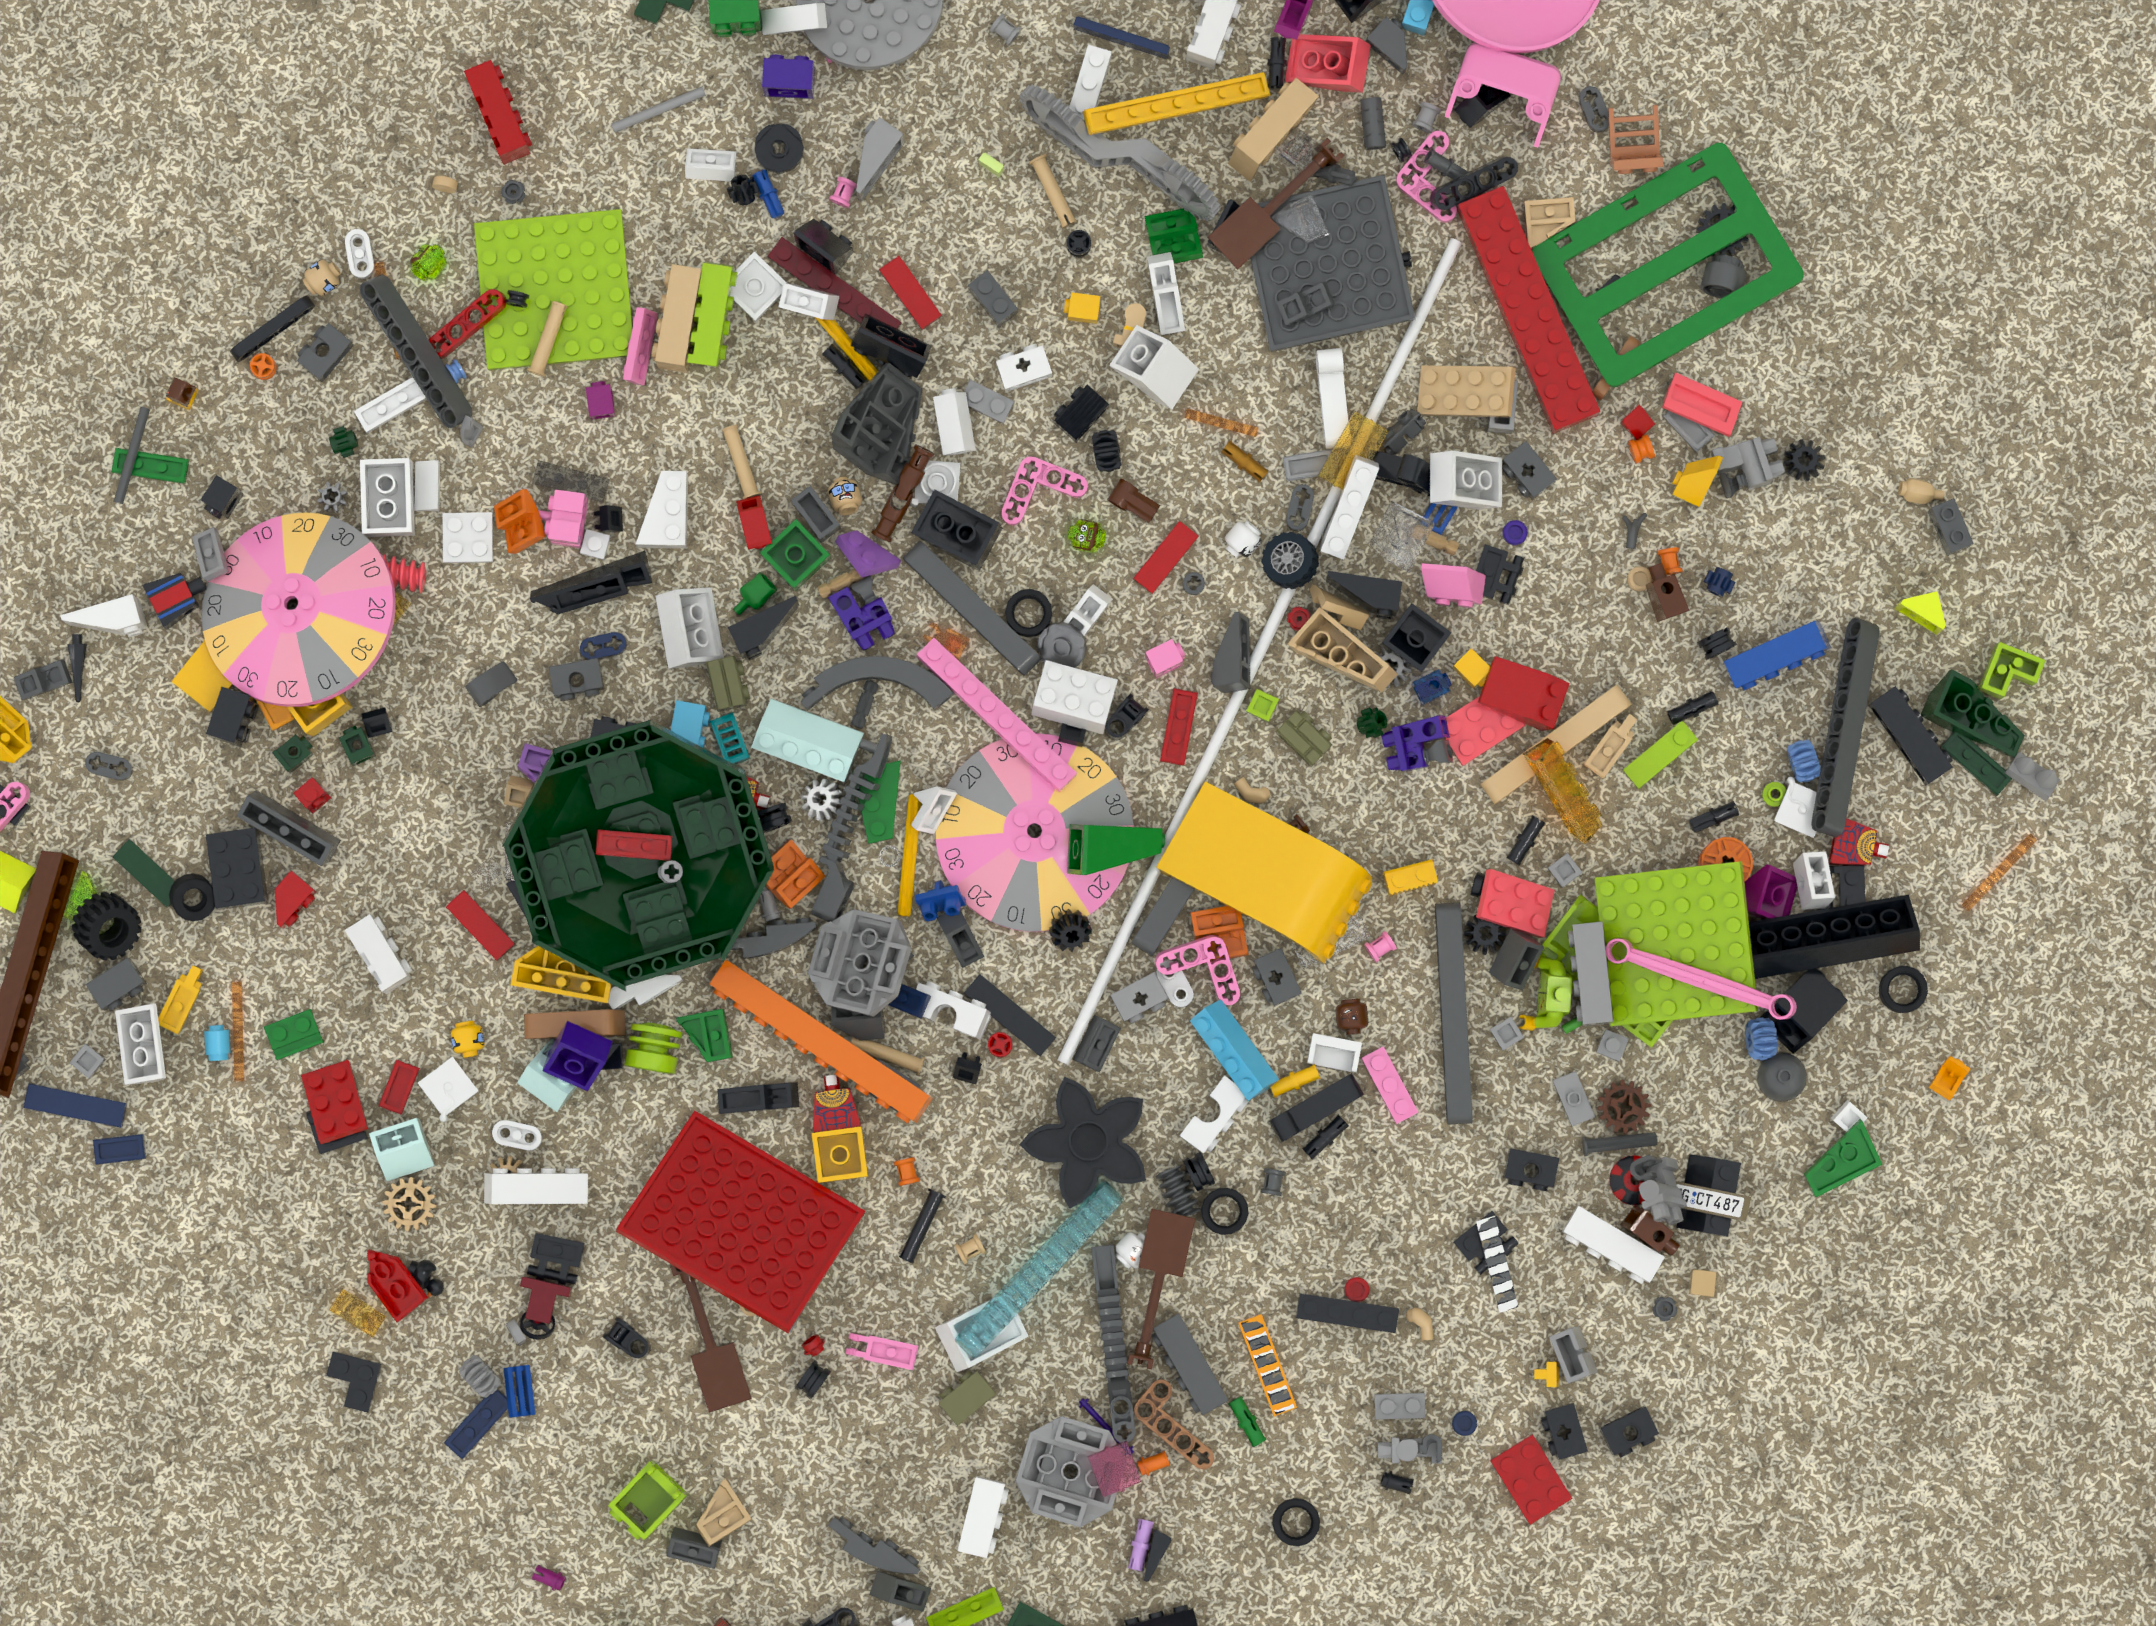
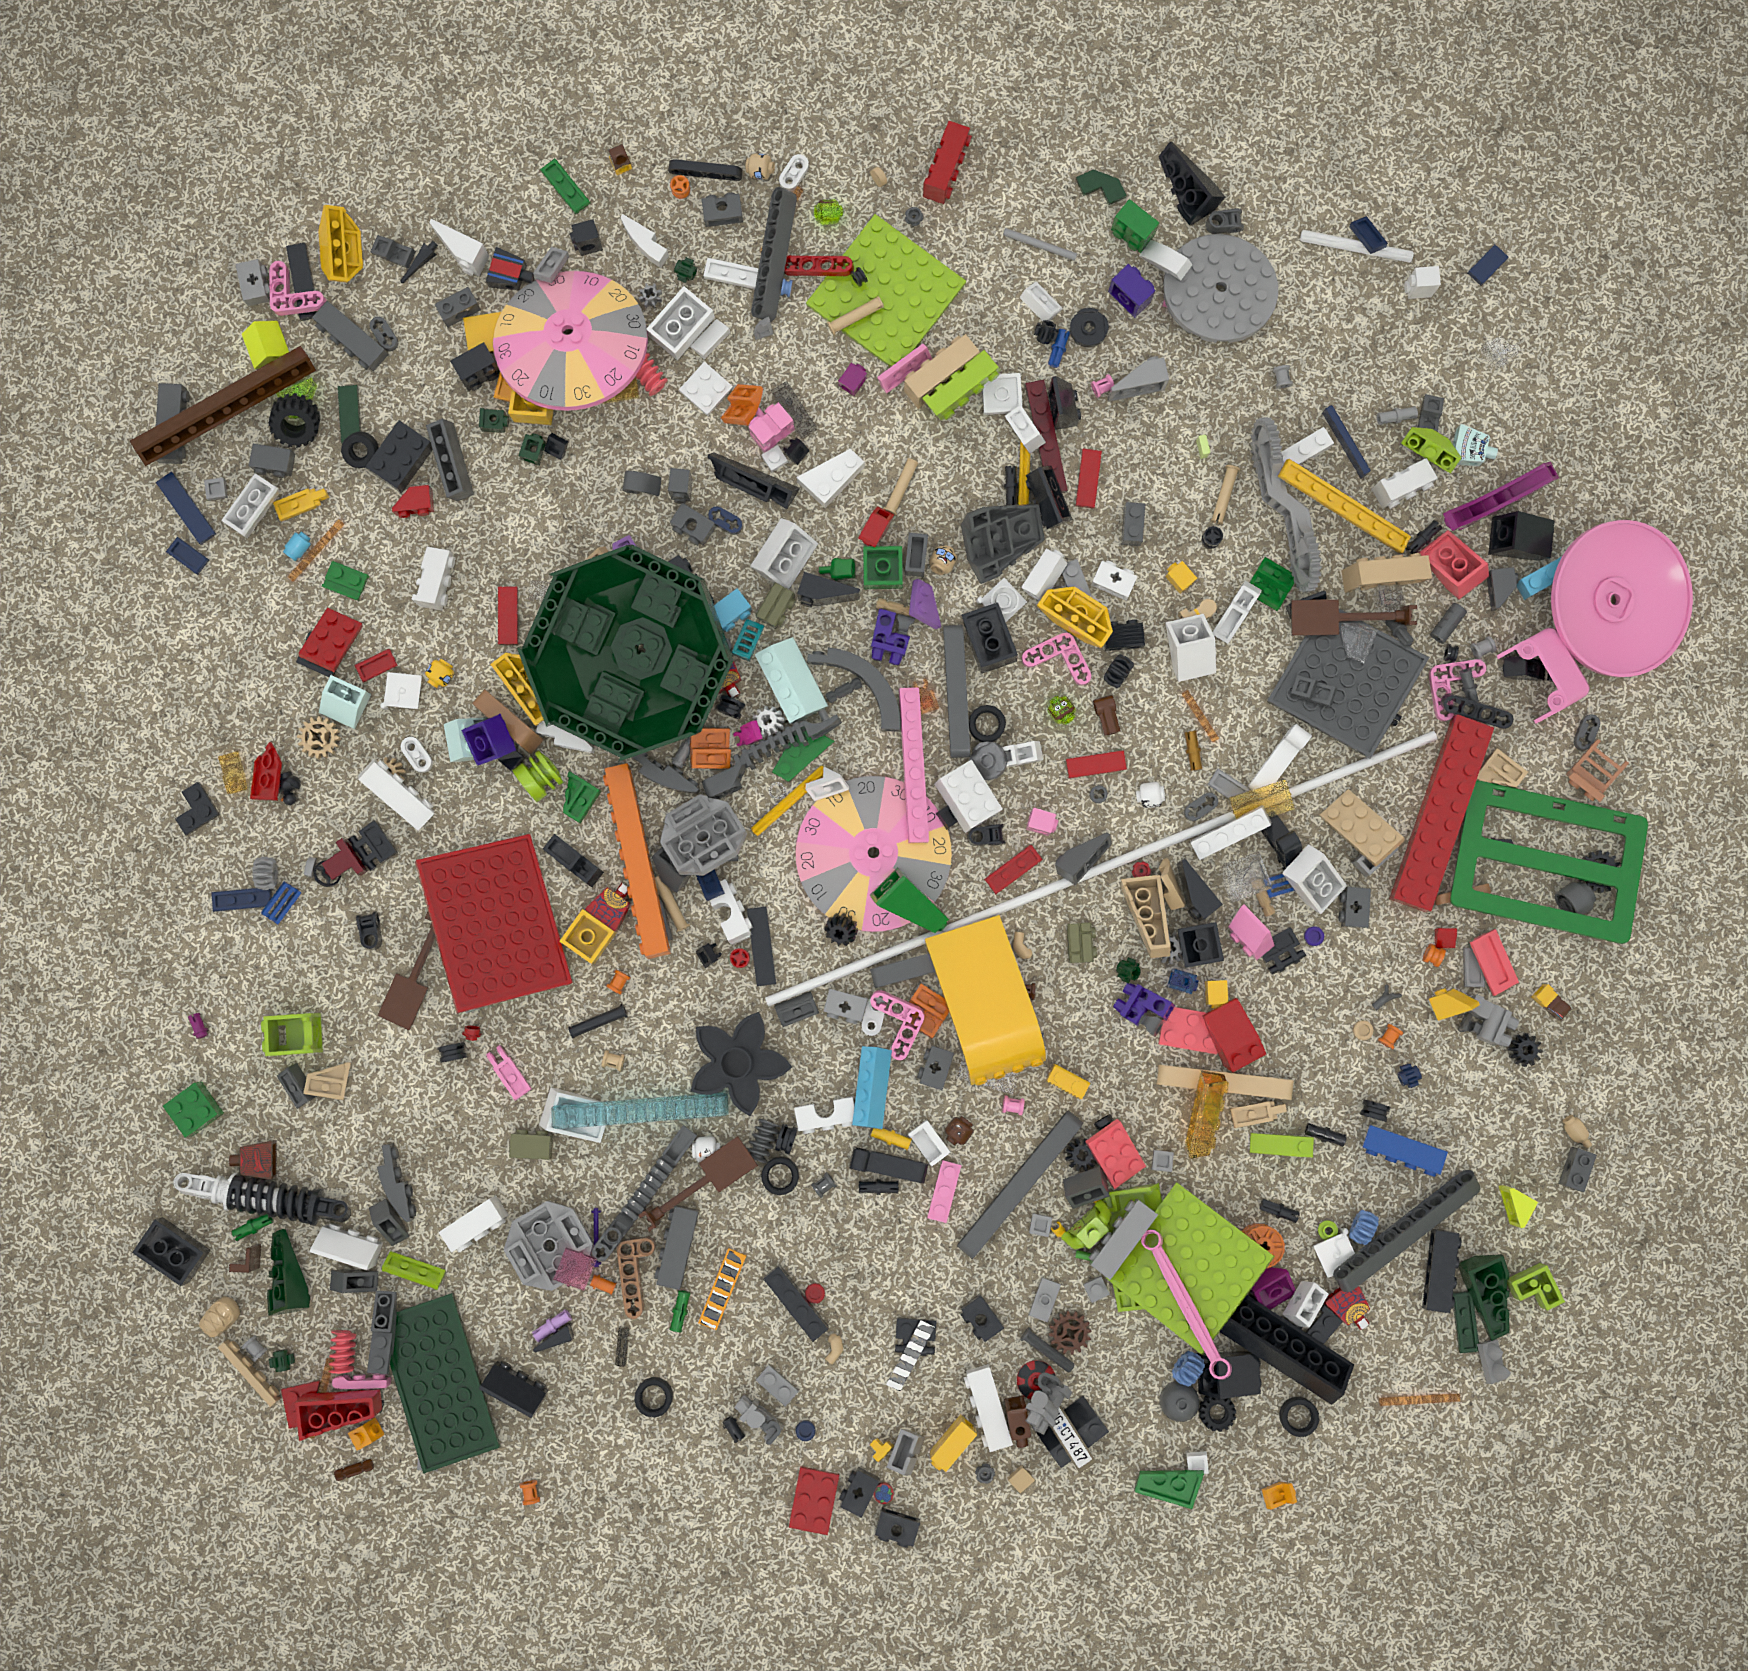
camera: 45 degrees right, 0 degrees up
(80, 798) = (349, 335): none -> dark grey brick
(131, 455) = (559, 169): dark grey bar -> none
(157, 675) = (457, 307): none -> dark grey brick
(278, 450) = (645, 241): none -> white slope
(312, 795) = (481, 453): red brick -> none
(532, 652) = (680, 485): none -> dark grey brick
(633, 845) = (634, 648): red tile -> none
(674, 866) = (640, 676): light grey bush -> none
(814, 827) = (749, 733): none -> dark pink plate
(909, 479) = (987, 584): reddish brown piece -> none
(940, 899) = (783, 842): blue hips -> none
(960, 938) = (774, 874): dark grey slope -> none
(1020, 432) = (1077, 614): none -> yellow wedge
(1224, 1503) = (622, 1346): none -> clear smoke axle
(1262, 705) = (1073, 901): lime plate -> none
(1290, 560) = (1167, 832): black wheel -> none
(1407, 424) = (1310, 817): dark grey hinge -> none
(1525, 840) = (1155, 1122): black pin -> none
(1588, 1413) = (883, 1493): none -> tile
(1608, 1307) = (952, 1443): none -> yellow brick
(1669, 603) = (1371, 1054): reddish brown torso -> none
(1788, 393) = (1551, 1002): none -> leg
(1836, 1065) = (1225, 1421): none -> black tyre

